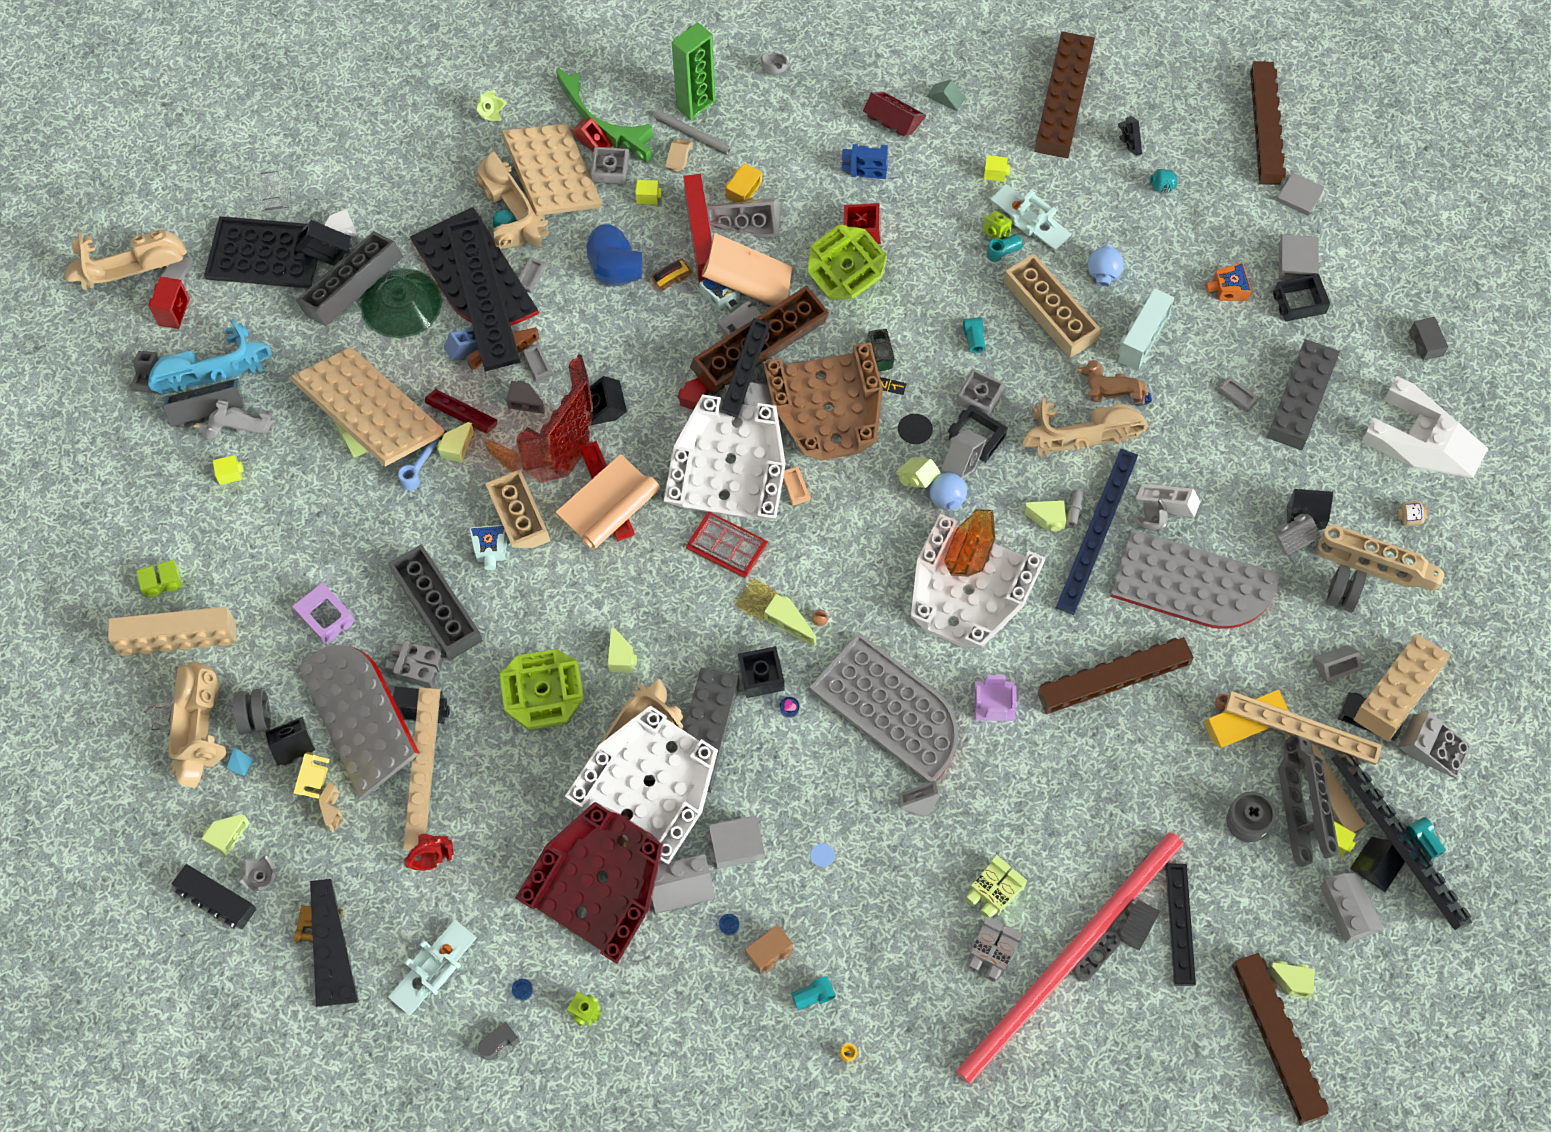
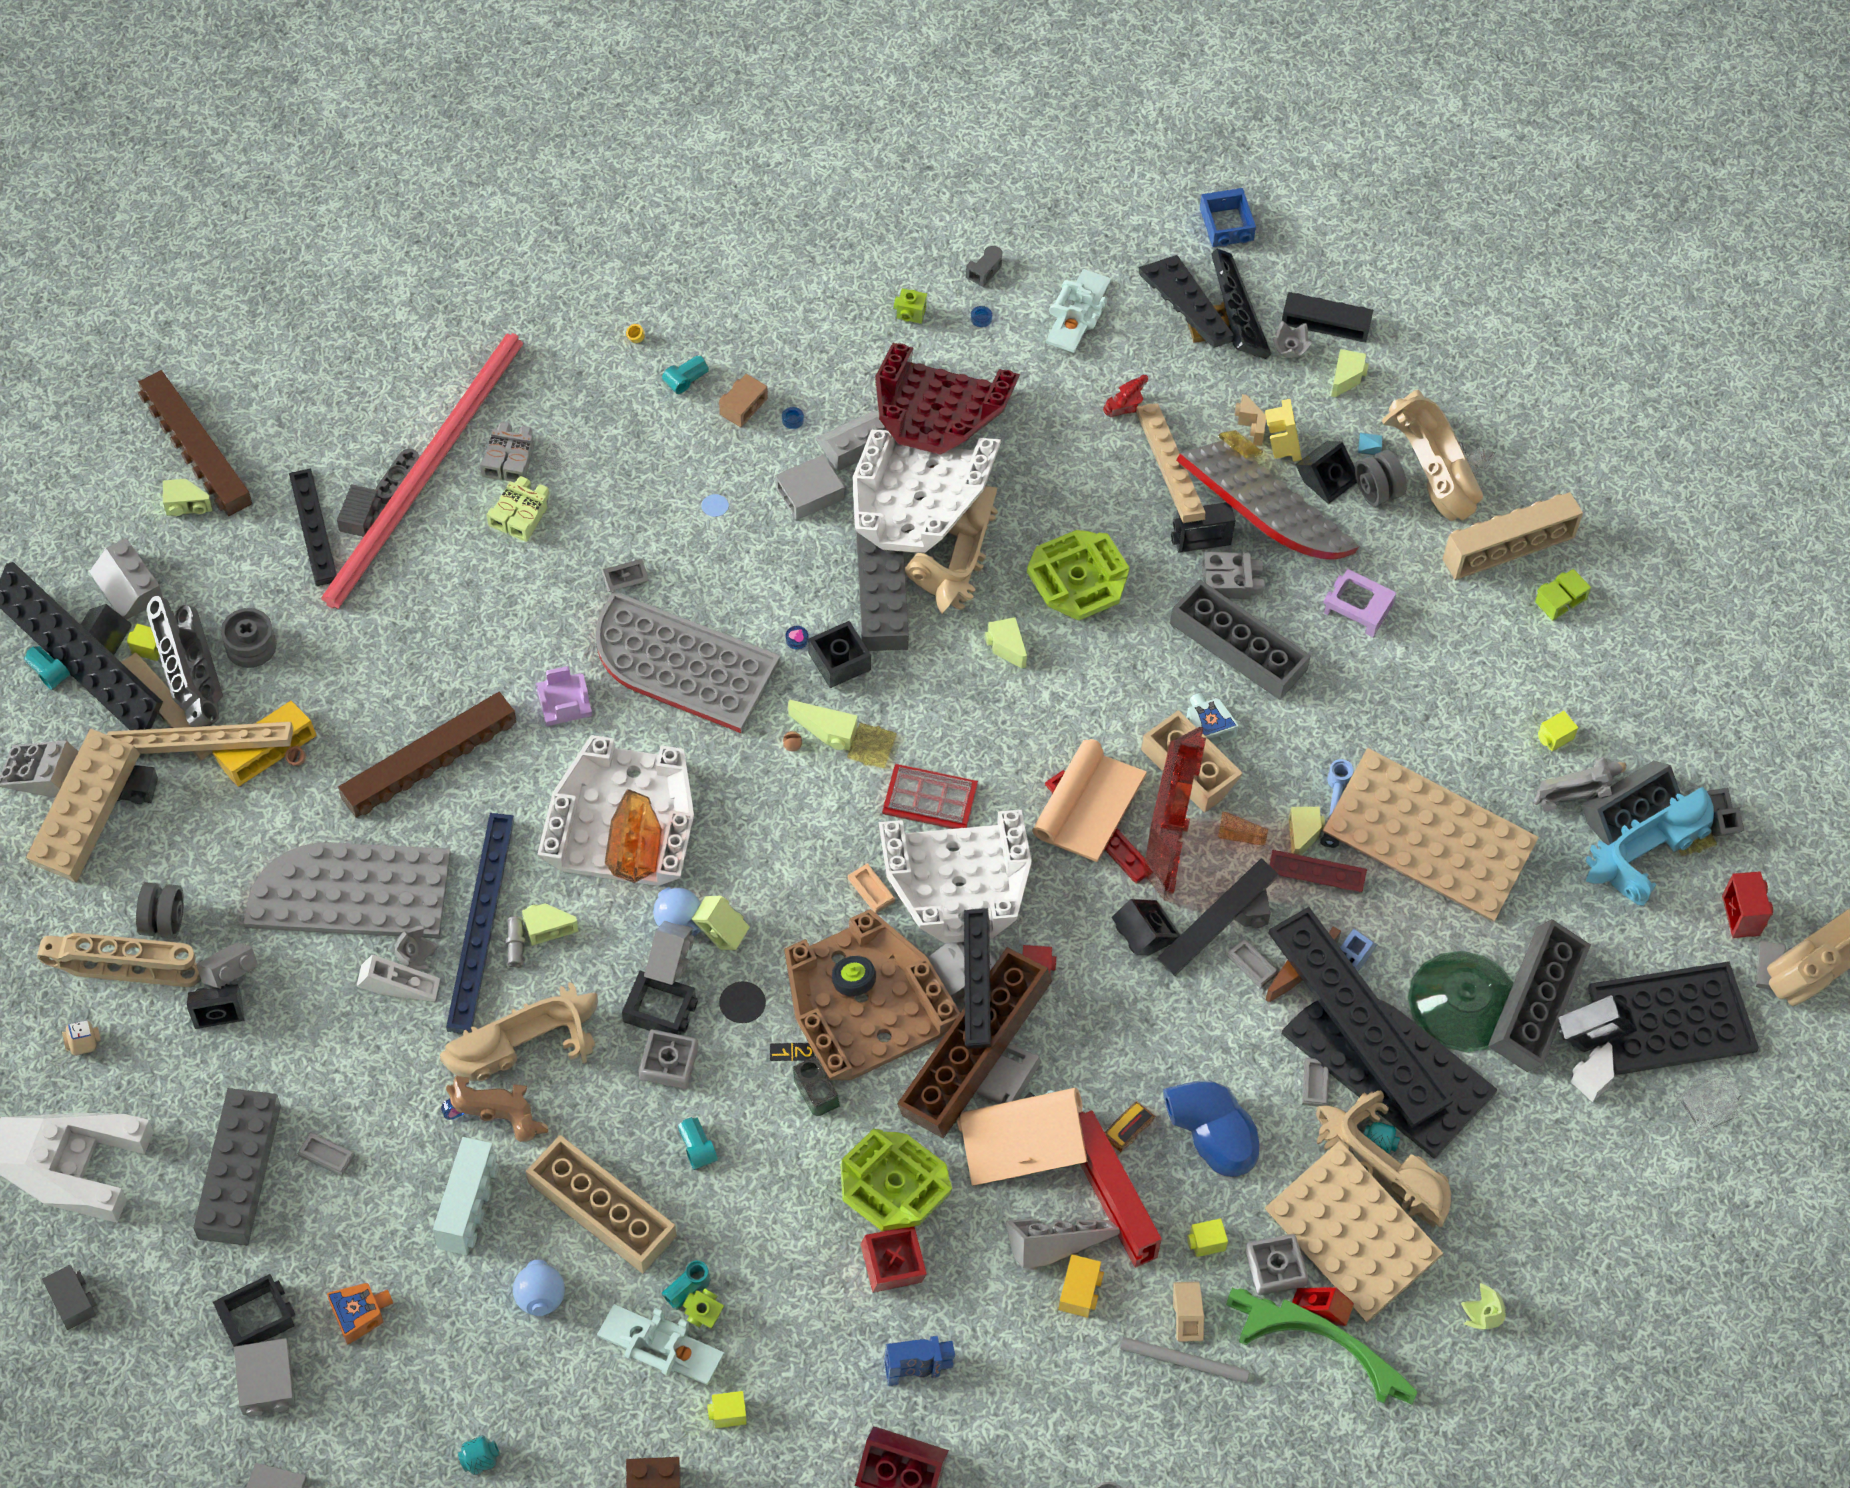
camera: 160 degrees right, 5 degrees down
(250, 1055) = (1232, 200): none -> blue window
(288, 919) = (1239, 309): none -> black wing
(352, 782) = (1240, 444): none -> clear yellow piece
(541, 389) = (1218, 917): none -> black tile
(693, 70) = (1206, 1386): bright green brick -> none
(831, 410) = (853, 976): none -> black wheel
(1338, 663) = (163, 834): light grey brick -> none

